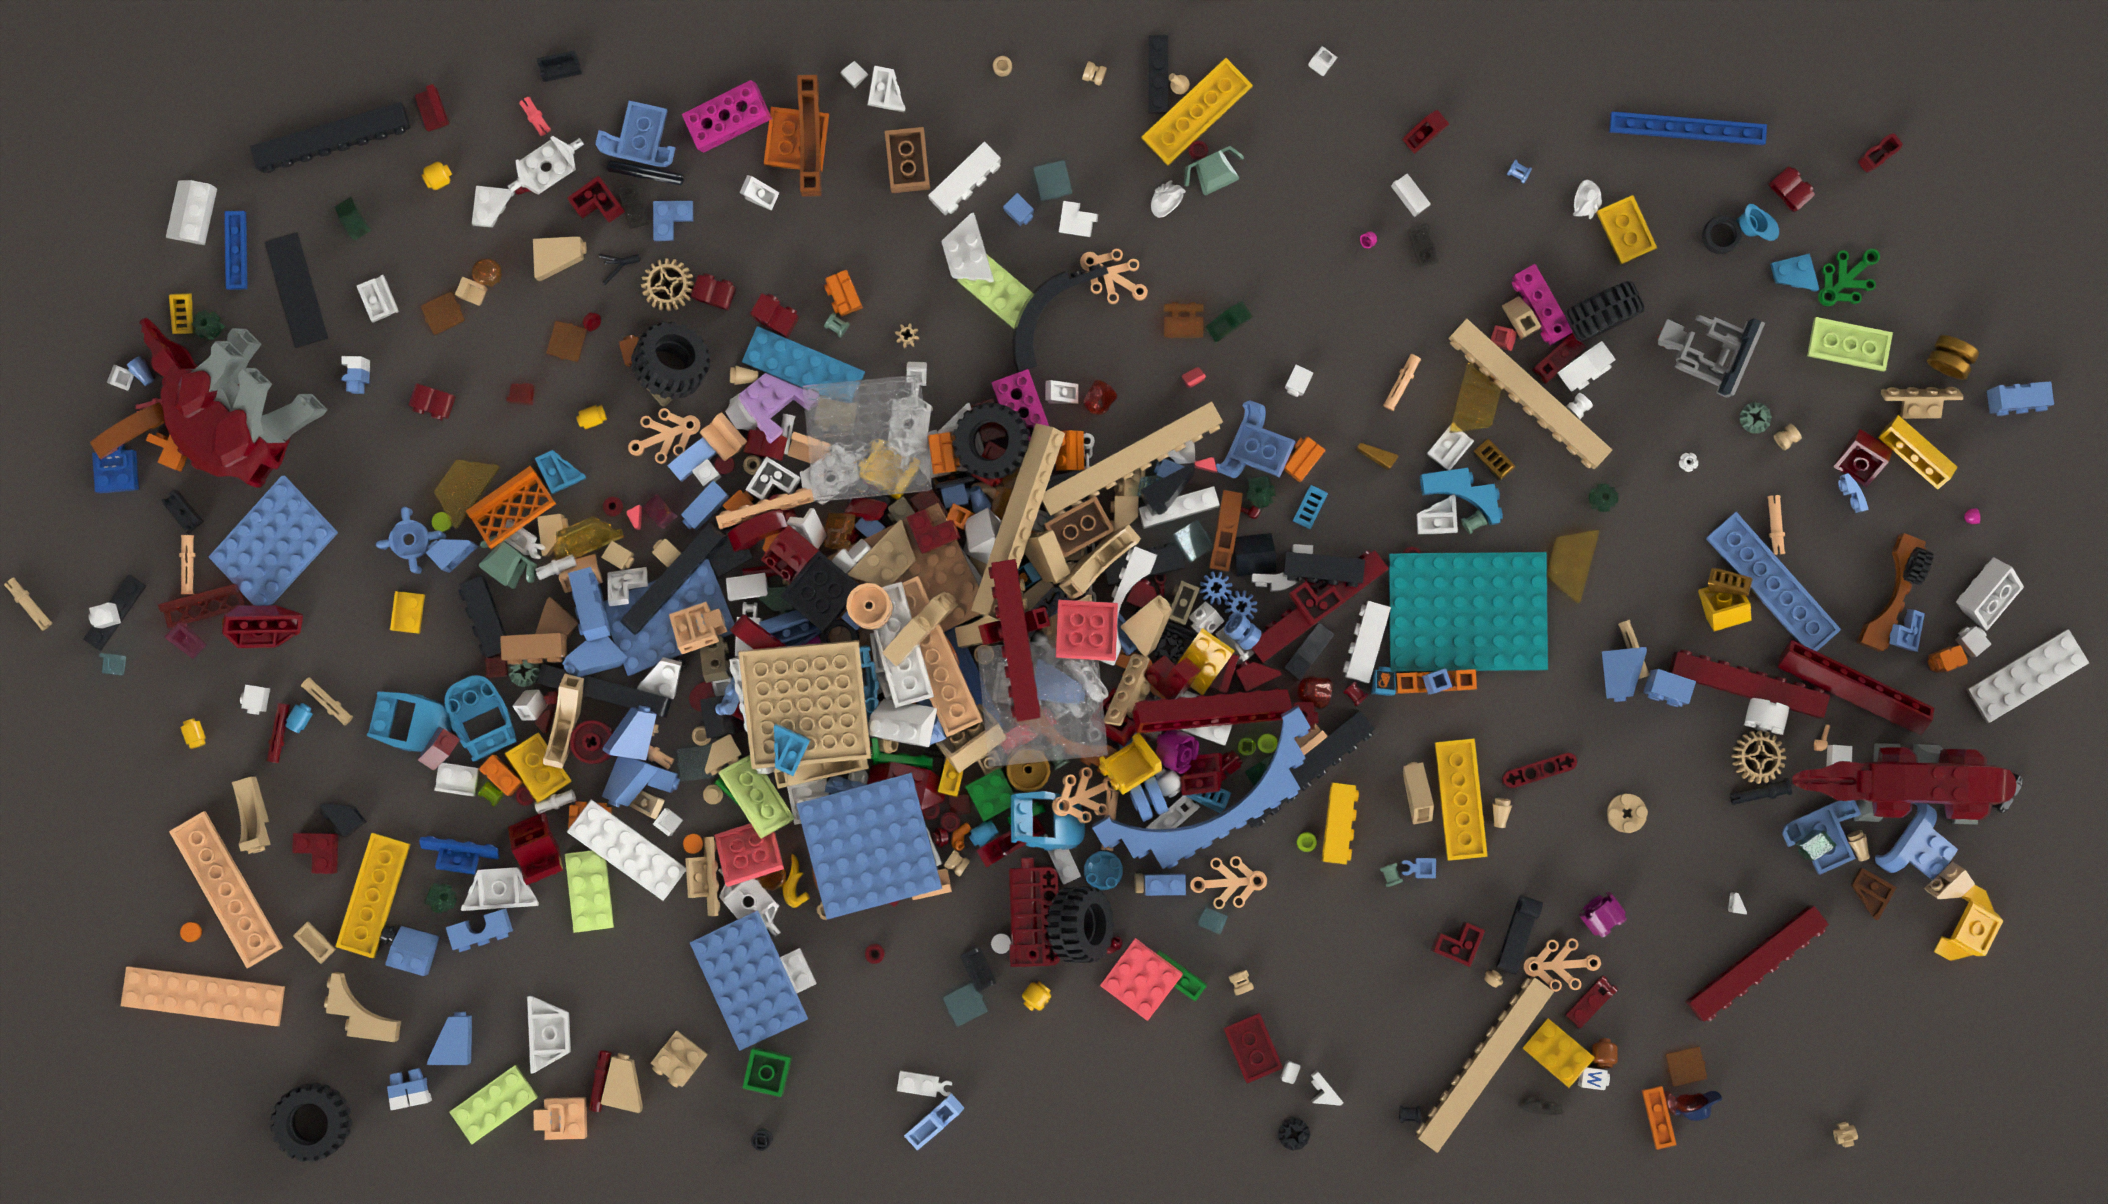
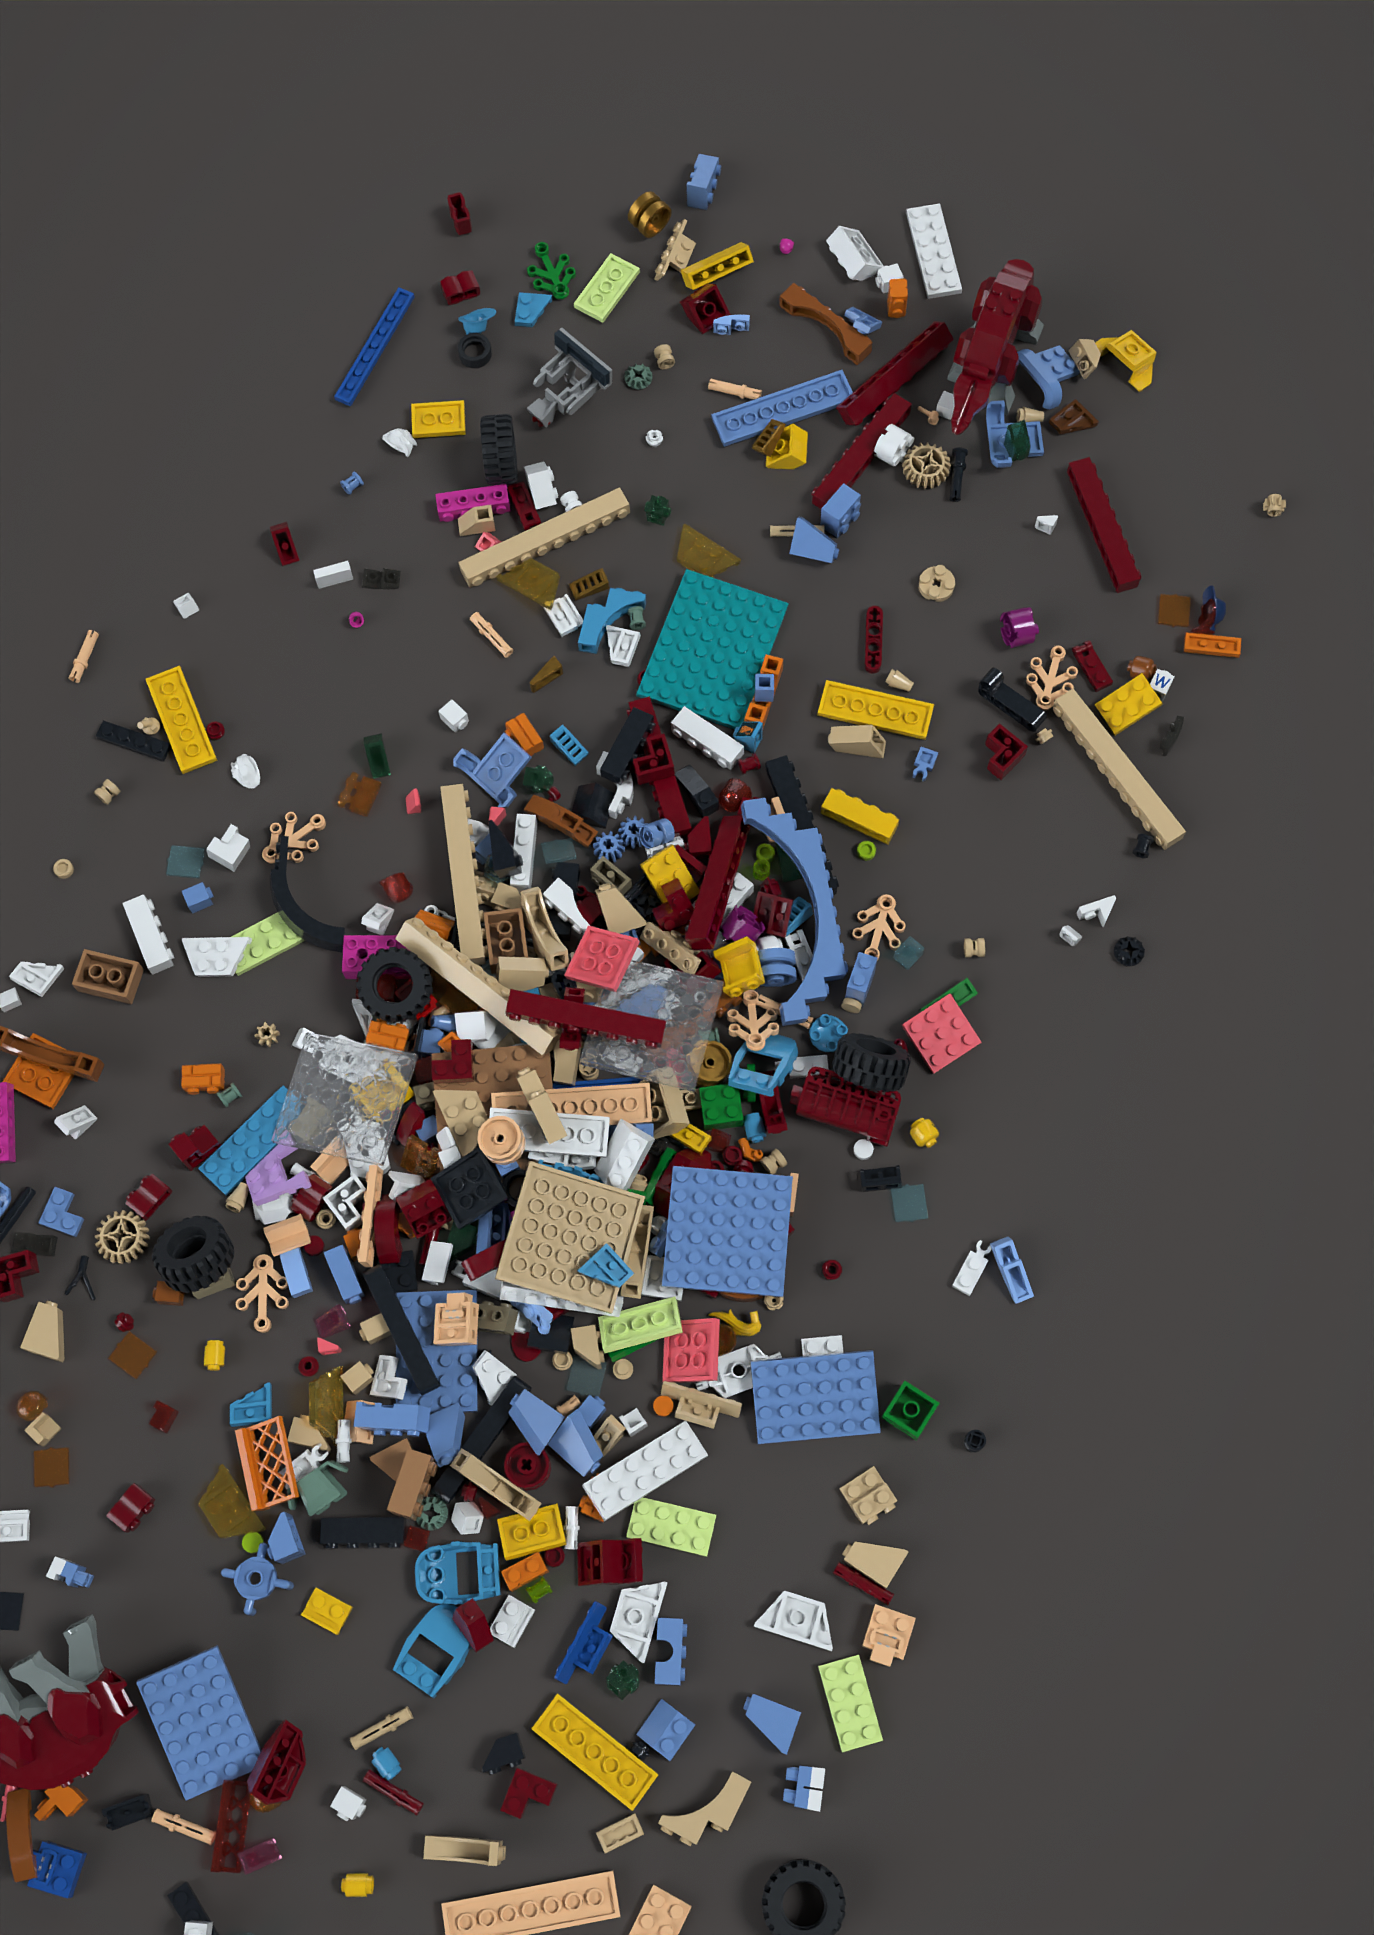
camera: 65 degrees left, 15 degrees down
(706, 473) = (315, 1263): white brick -> none
(1206, 618) = (630, 863): white brick -> none
(1214, 171) = (241, 718): sand green piece -> none
(1253, 1048) = (1038, 958): dark red plate -> none
(1391, 874) = (922, 788): sand green bush -> none
(1918, 566) = (811, 289): black tyre -> none

